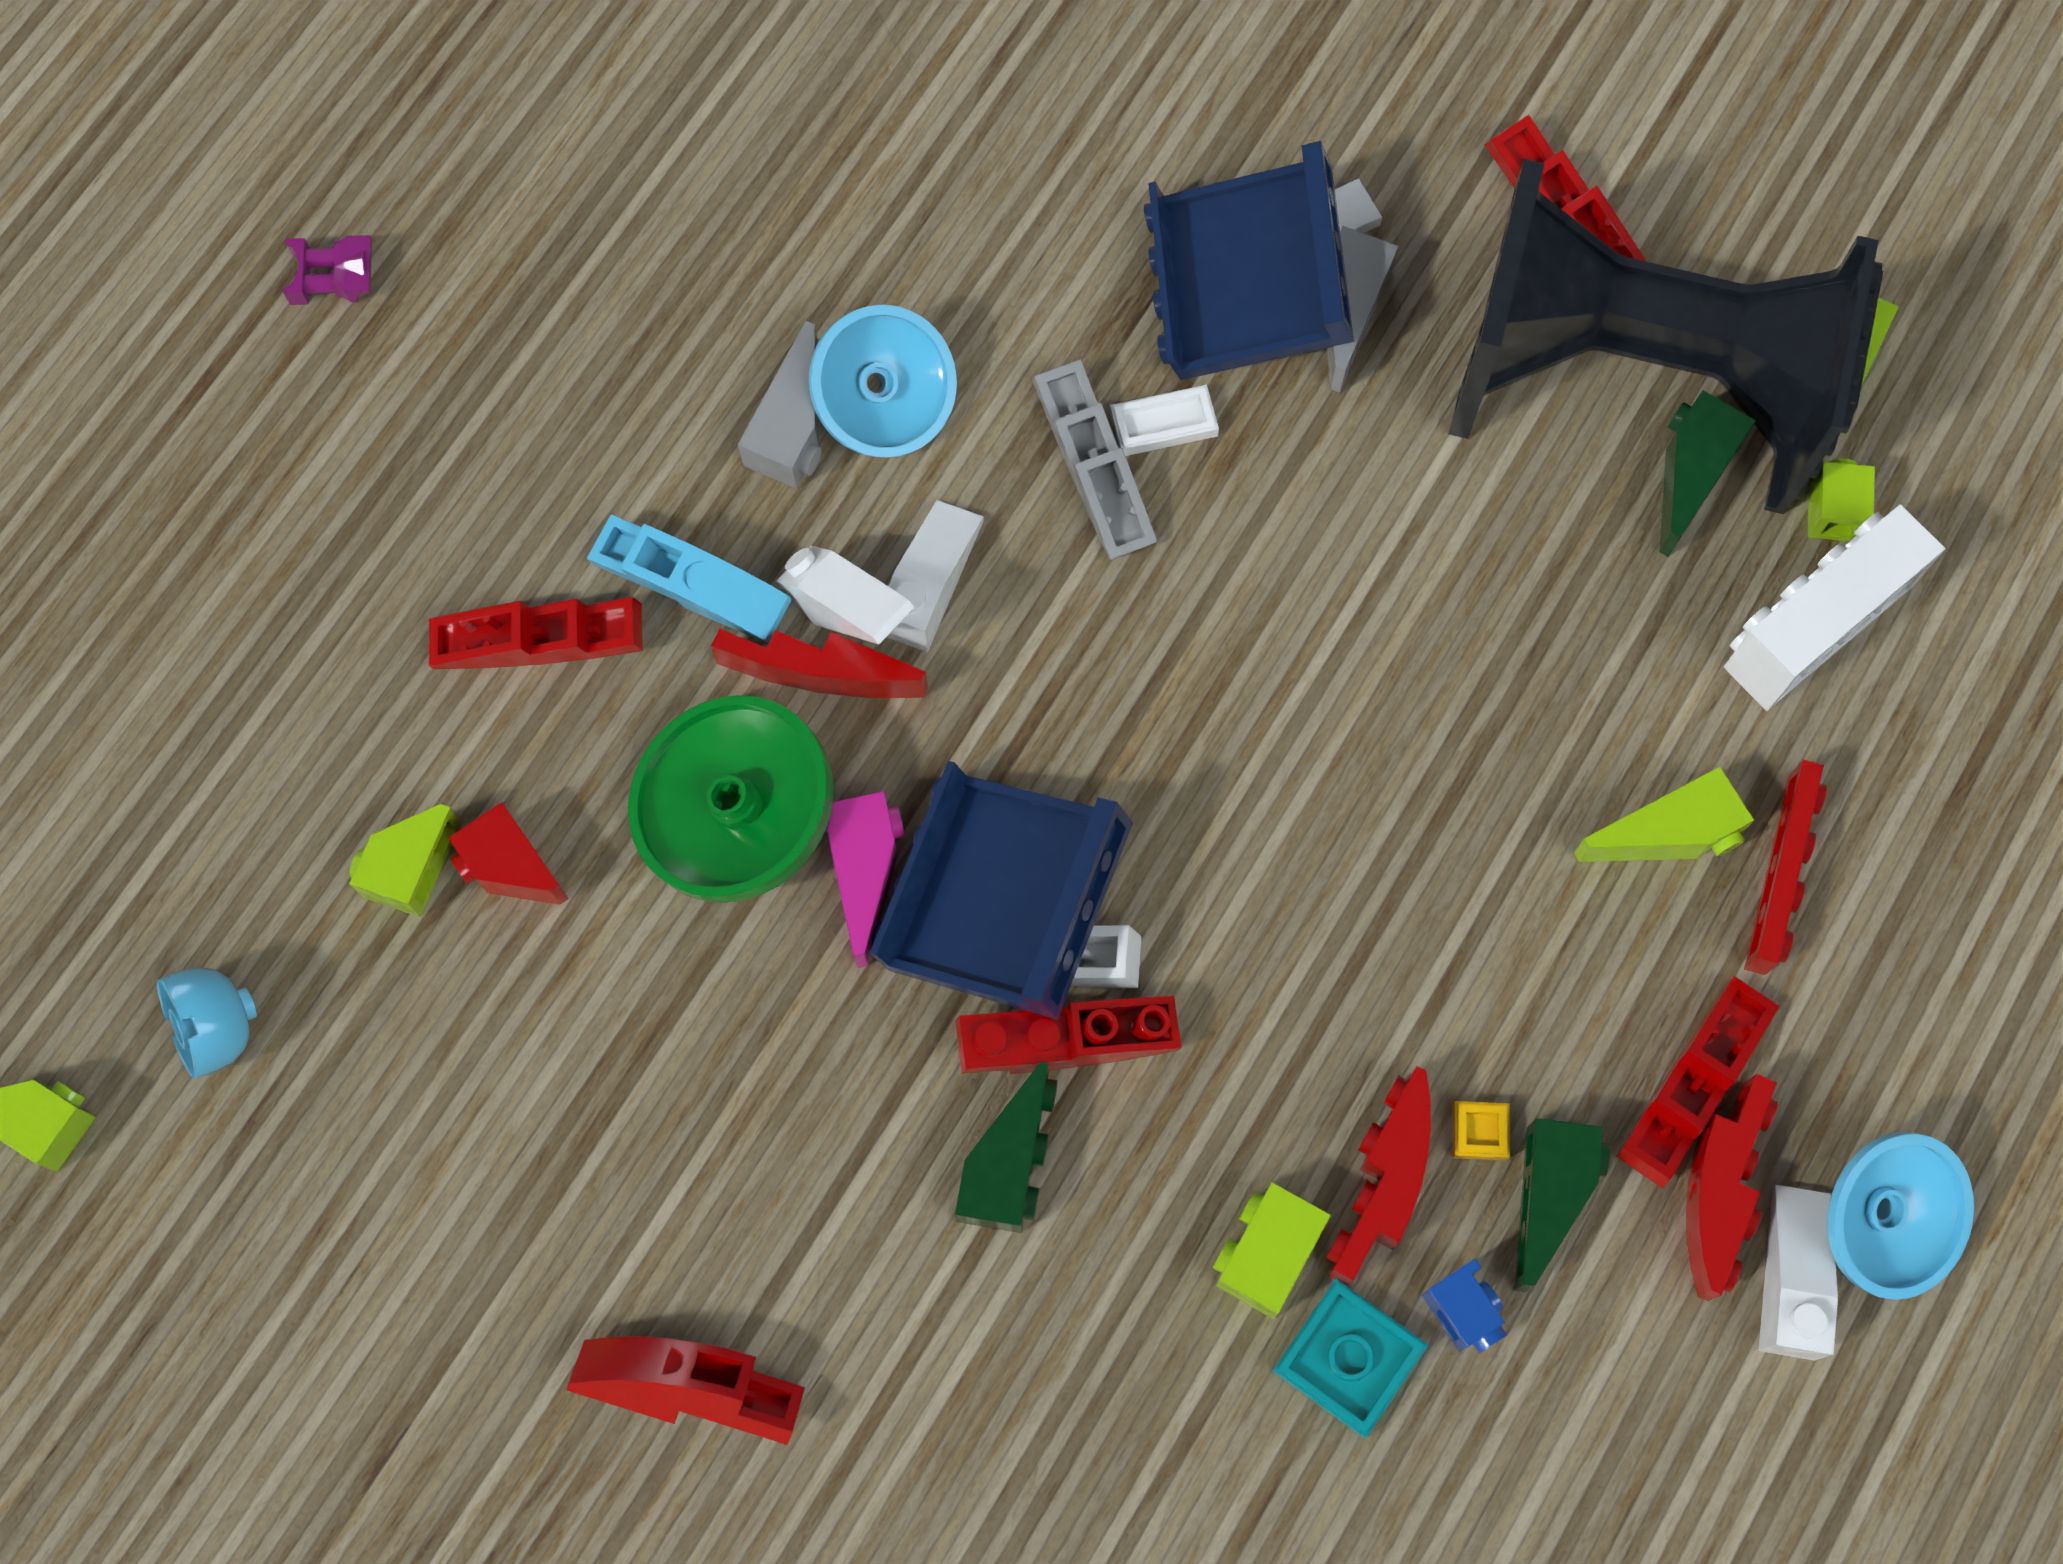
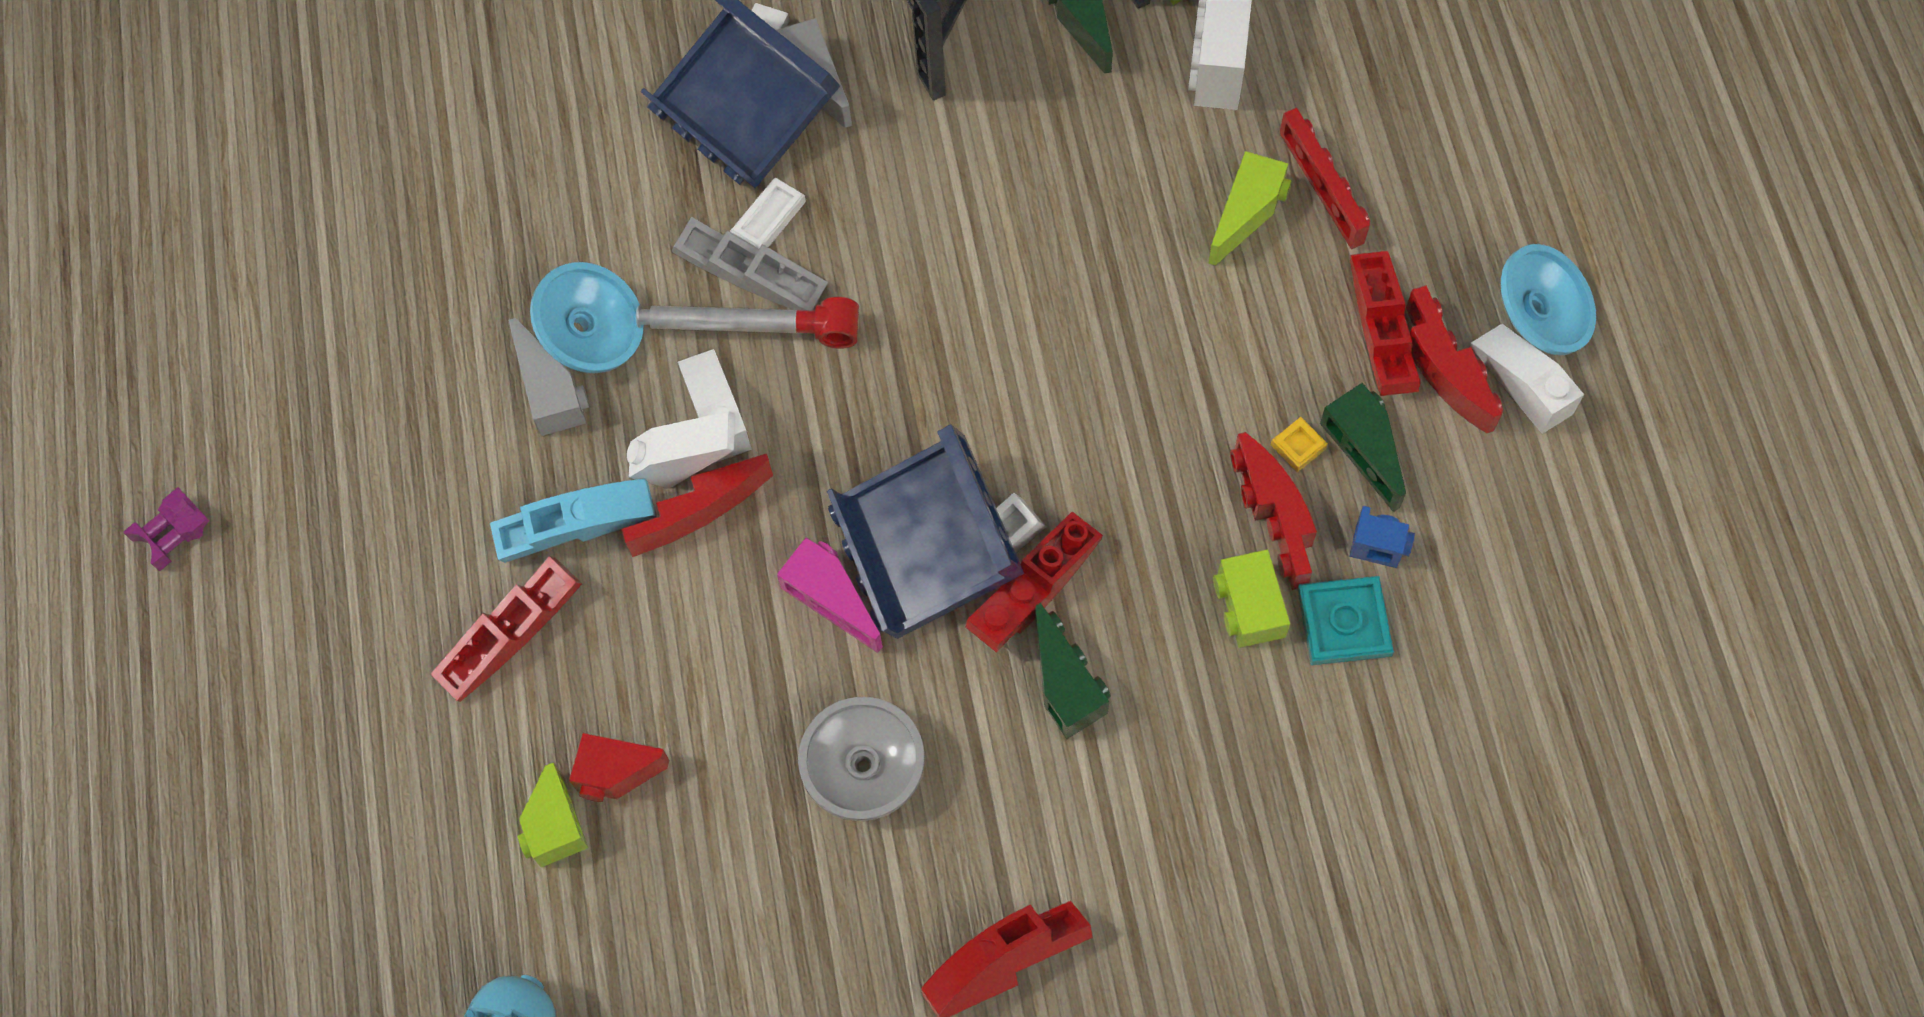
camera: 40 degrees left, 5 degrees down
(710, 1034) = (857, 732): none -> light grey dish
(730, 799) = (718, 617): green dish -> none
(1117, 586) = (831, 322): none -> piece

